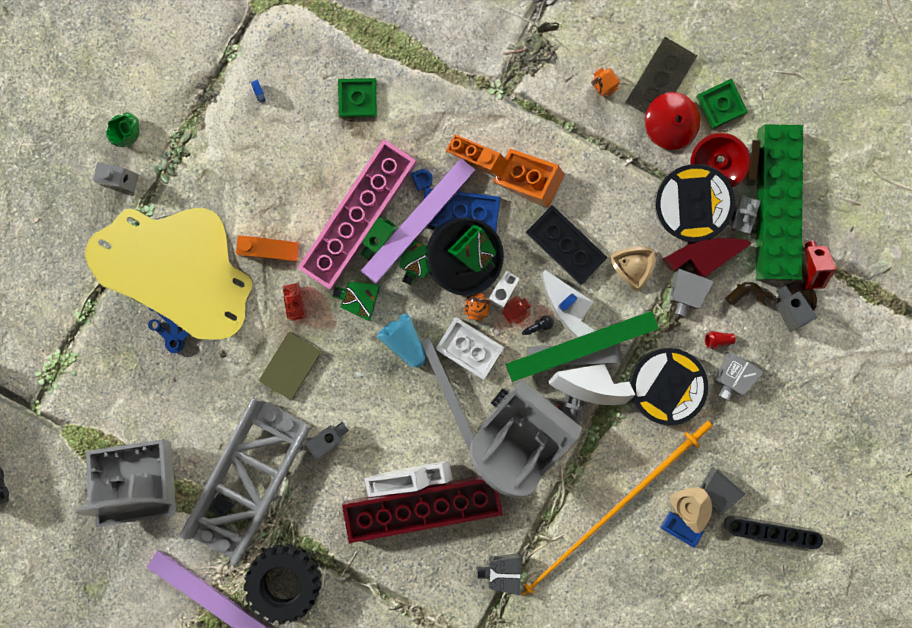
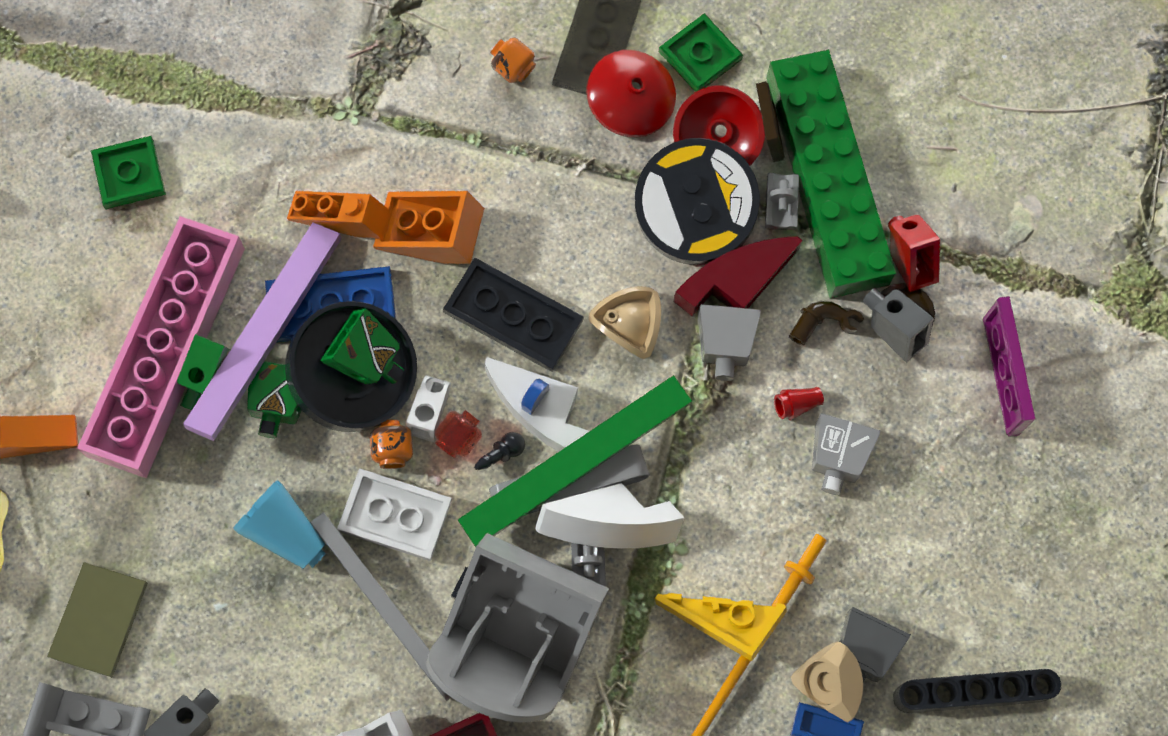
camera: 20 degrees left, 15 degrees down
(294, 302) = (84, 512): clear red leg -> none
(358, 298) = (191, 478): green torso -> none
(422, 179) = (258, 269): blue tile -> none
(648, 462) = (732, 623): none -> yellow wing
(669, 386) = (737, 495): piece -> none
(851, 352) = (1008, 367): none -> magenta tile

